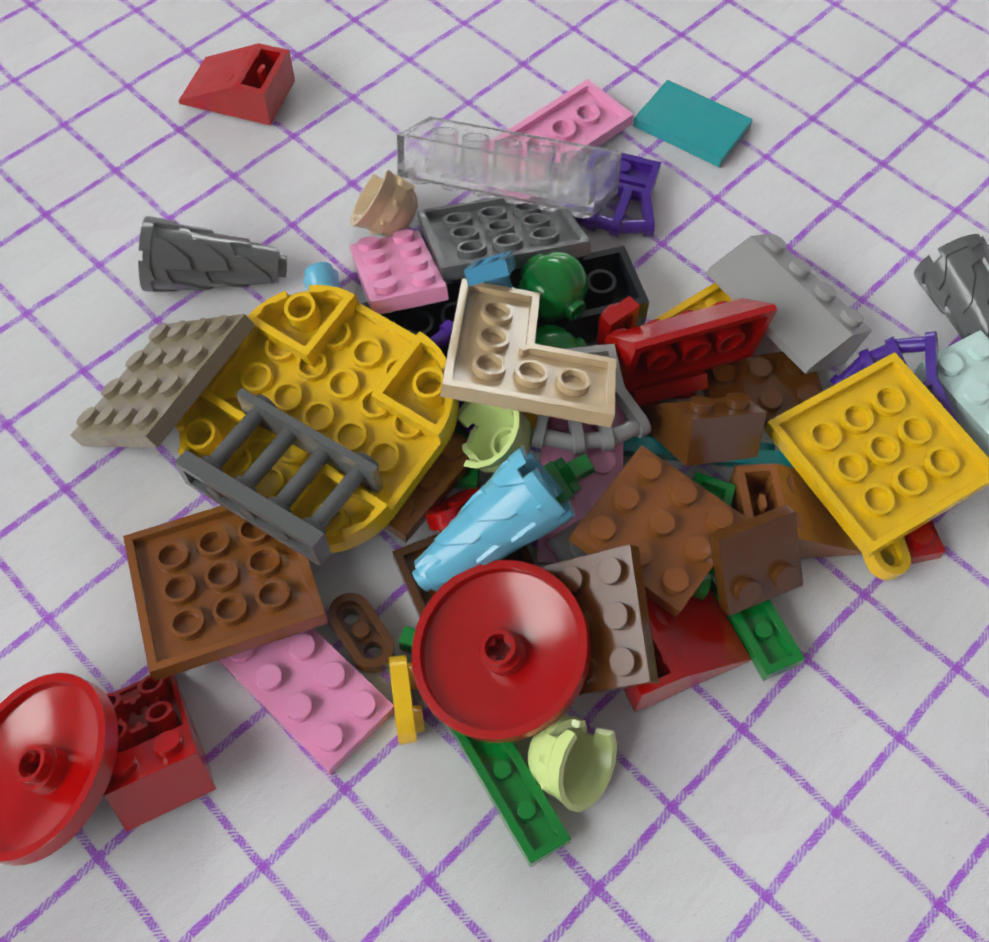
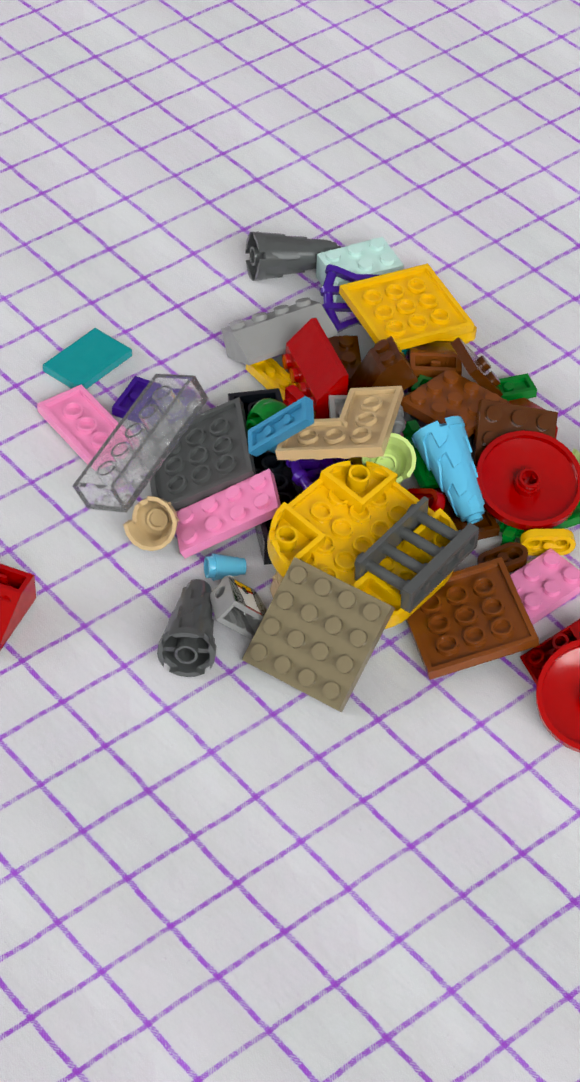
camera: 85 degrees left, 15 degrees down
(232, 291) = (233, 602): none -> light grey torso

